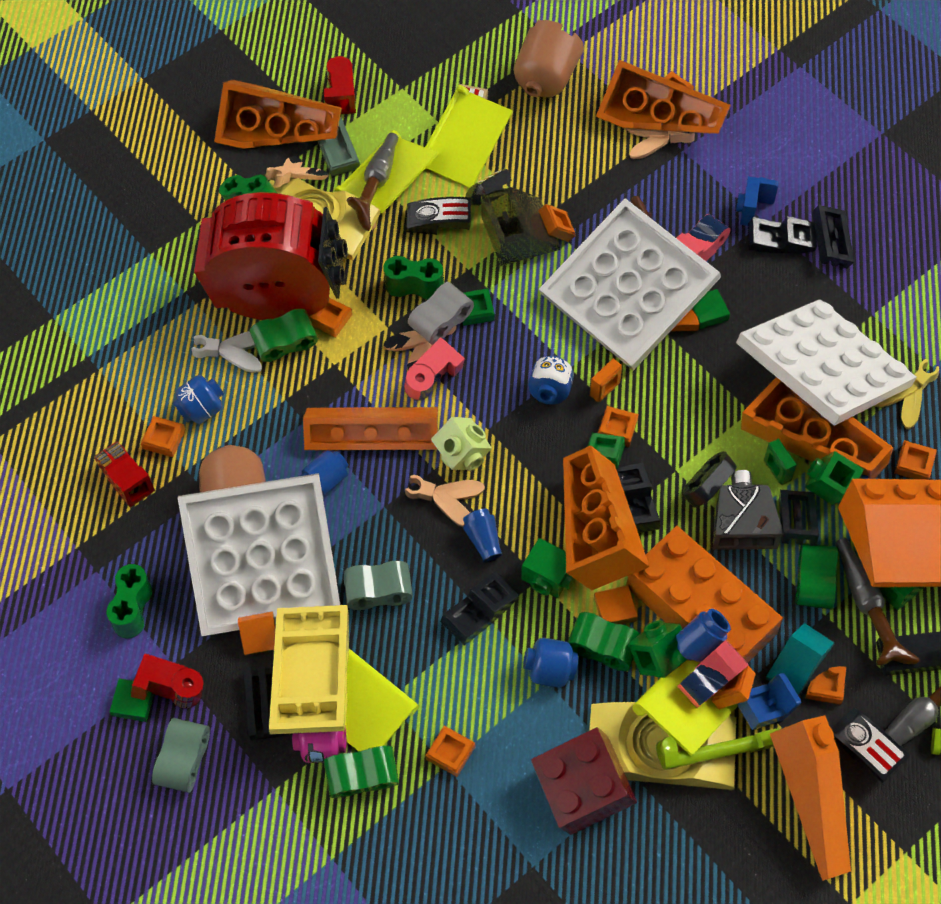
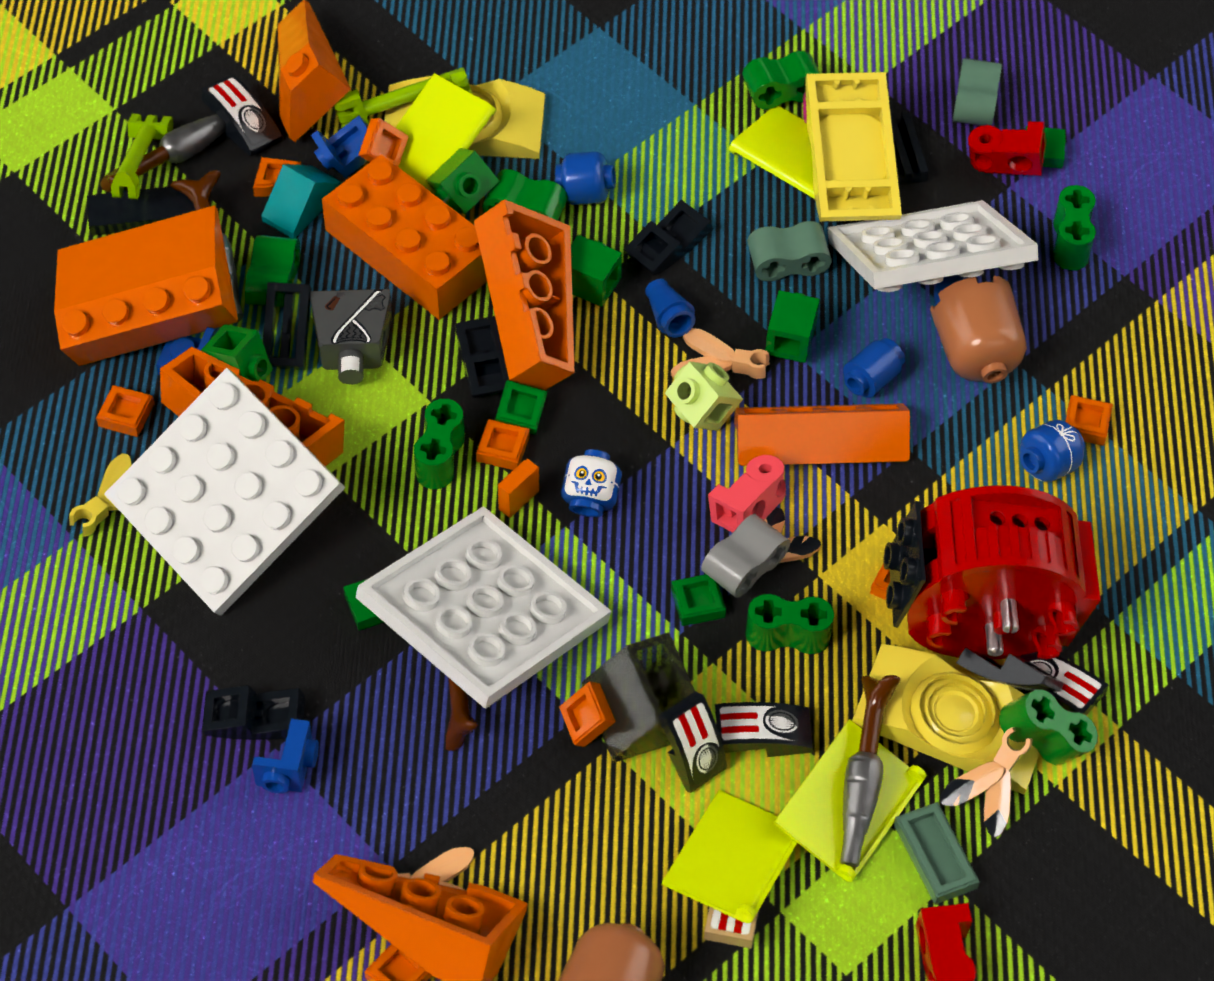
camera: 175 degrees right, 5 degrees down
(124, 473) = (1122, 365): red leg -> none
(257, 632) = (921, 201): orange tile -> none
(265, 117) = (1078, 891): orange wedge -> none
(384, 504) = (792, 326): none -> green brick
(450, 751) = (690, 111): orange tile -> none
(583, 781) = (548, 63): dark red brick -> none
(668, 412) = (439, 443): none -> green axle
(703, 635) = (416, 159): blue brick -> none
(705, 237) = (377, 689): leg -> none
(709, 479) = (387, 365): black beam -> none
(712, 674) = (404, 137): leg -> none
(780, 462) = (297, 385): green tile -> none
(827, 236) = (187, 704): black tile -> none

